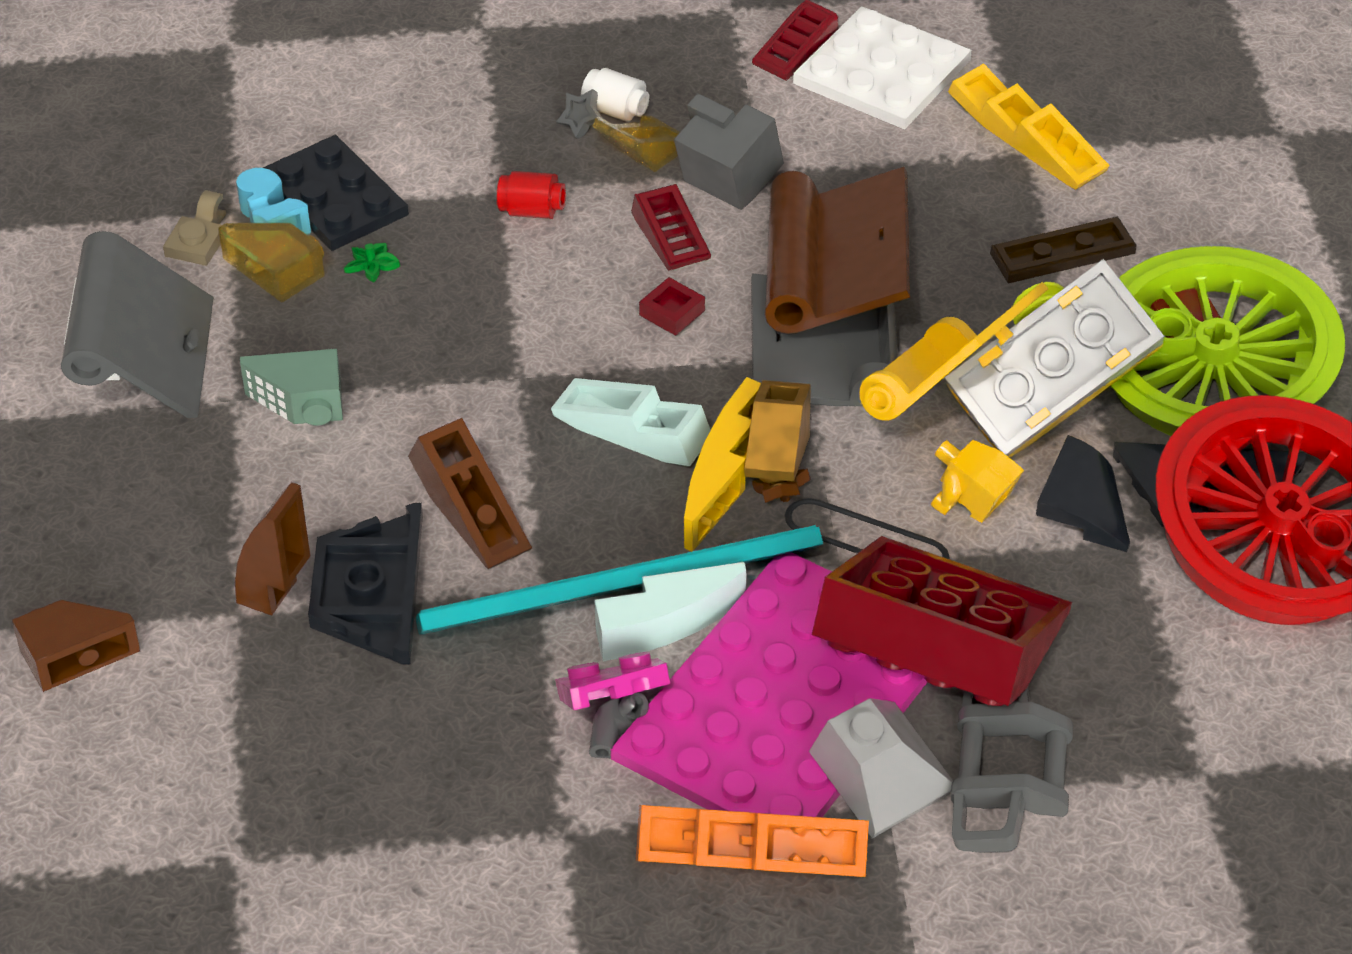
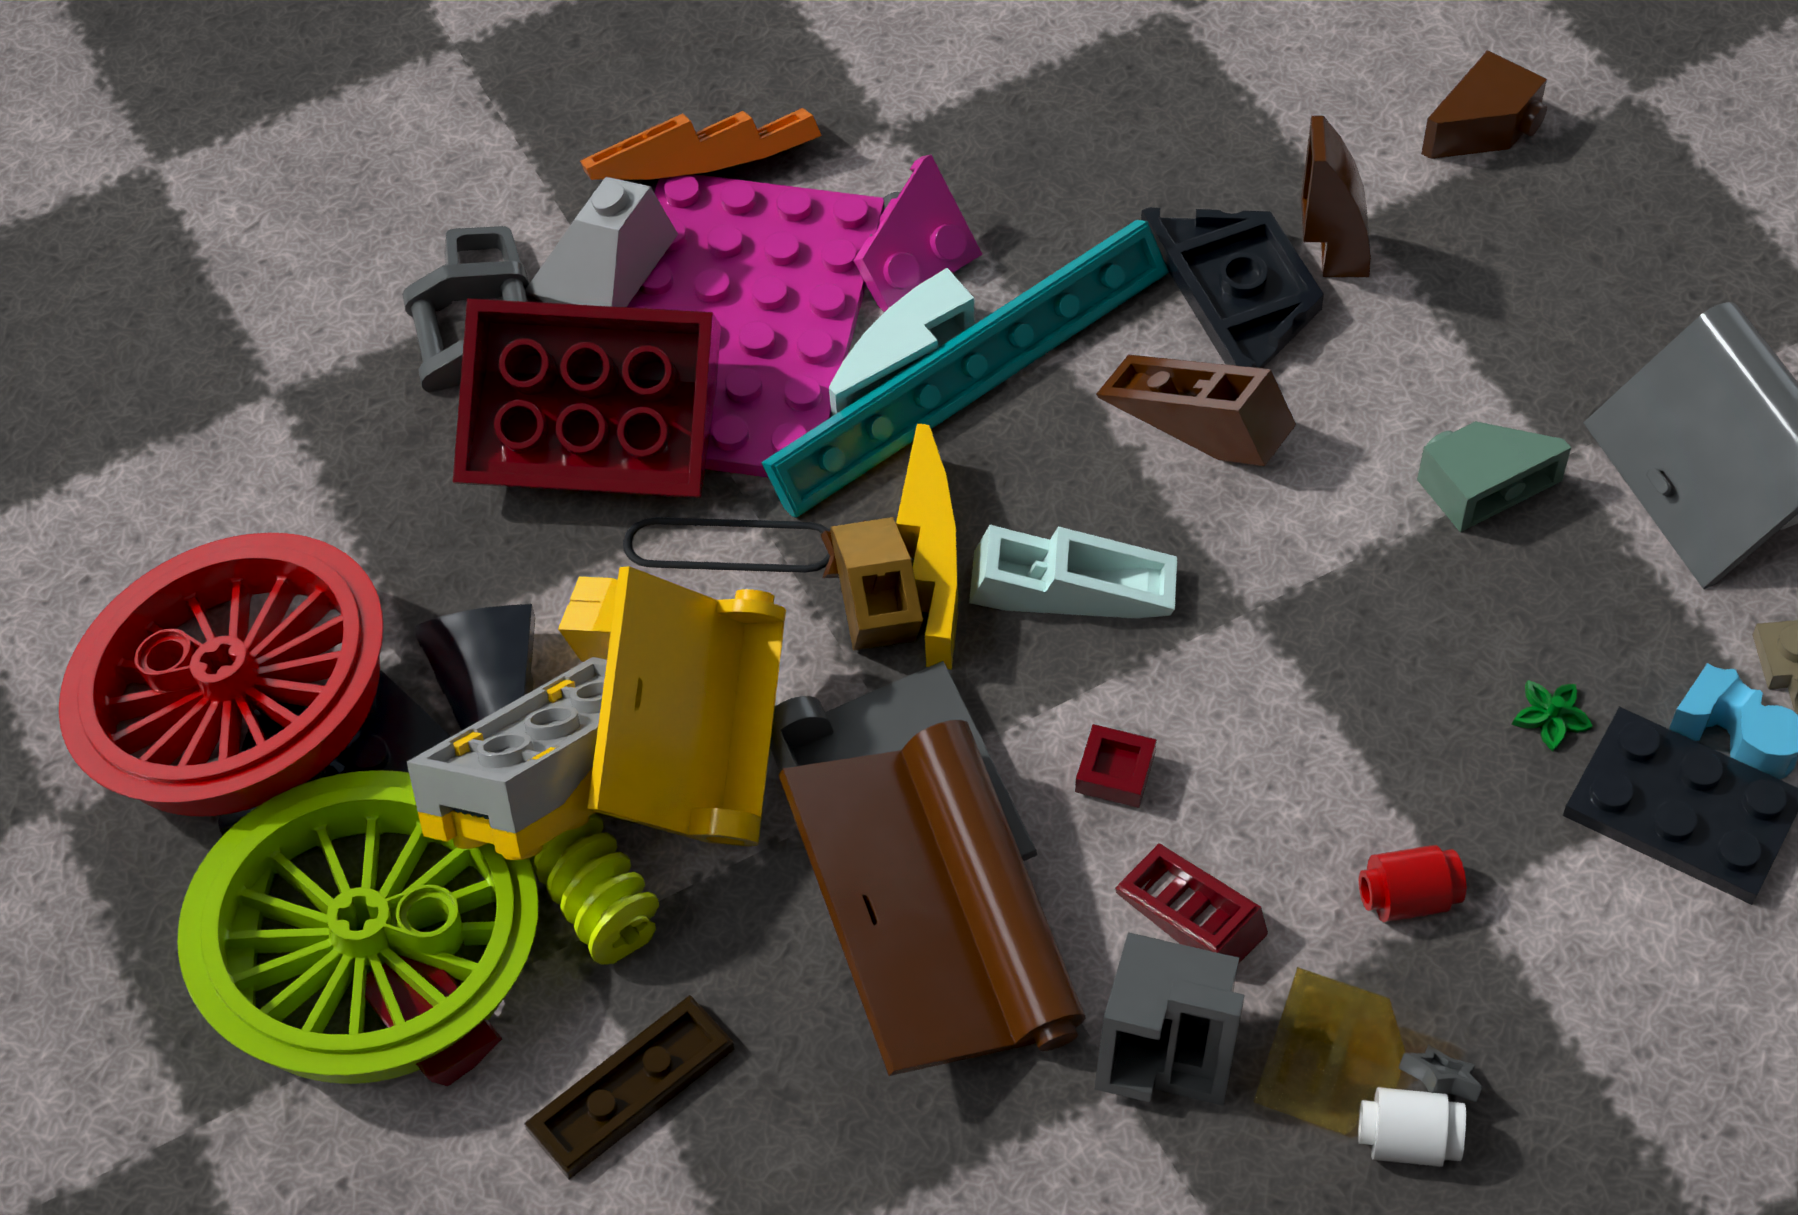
camera: 160 degrees right, 10 degrees up
(273, 256) = (1668, 641): clear yellow slope -> none

